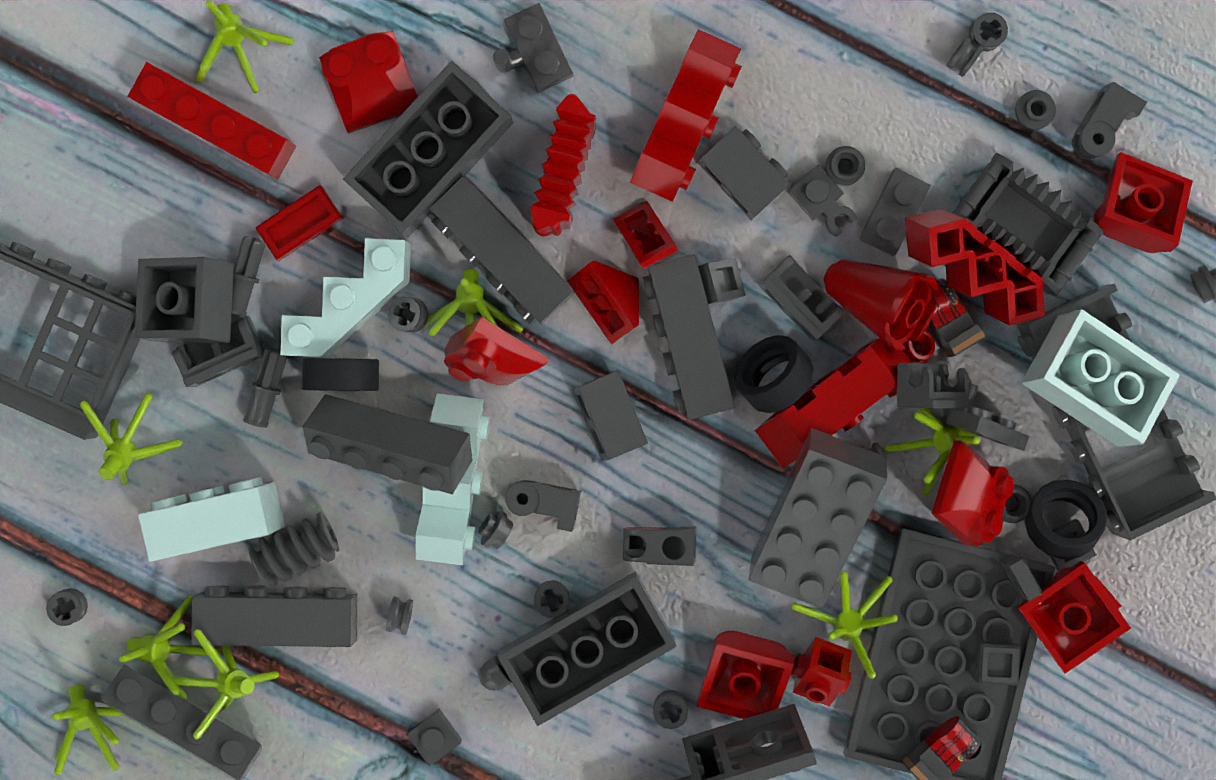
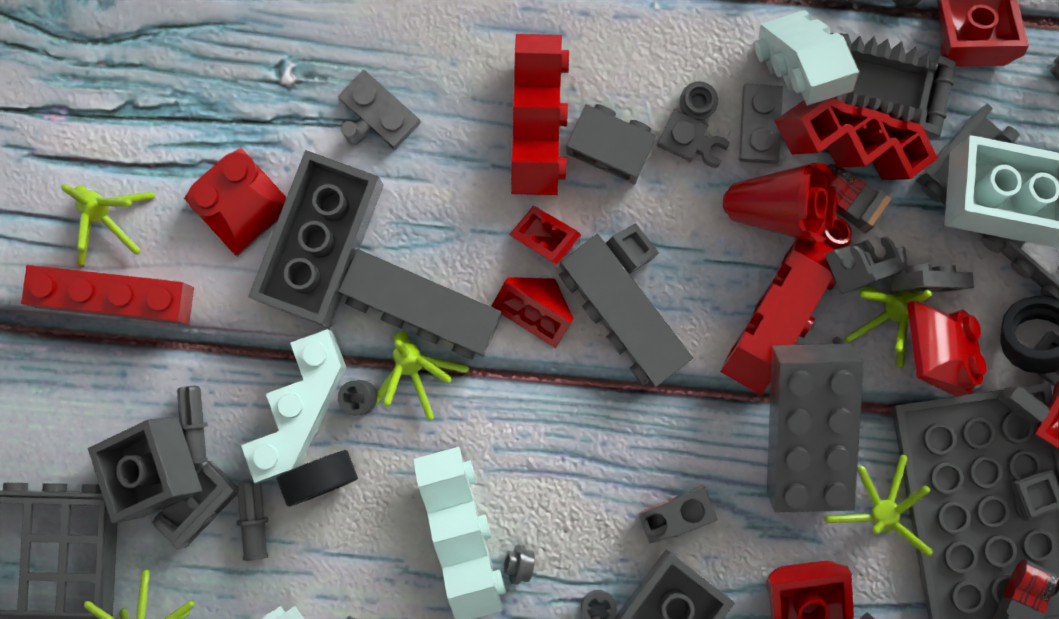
camera: 20 degrees left, 5 degrees down
(299, 223) = (224, 355): red tile -> none
(388, 444) = (387, 524): dark grey brick -> none
(490, 354) = (449, 401): red slope -> none
(544, 499) = (554, 516): dark grey leg -> none
(563, 167) = (446, 204): red piece -> none
(610, 416) = (581, 414): dark grey hinge -> none
(786, 387) = (732, 320): black tyre -> none
(801, 298) = (710, 235): dark grey hinge -> none
(822, 671) = (880, 570): red brick -> none
(962, 169) = (807, 56): none -> light aqua brick
(1021, 510) = (994, 339): dark grey plate -> none

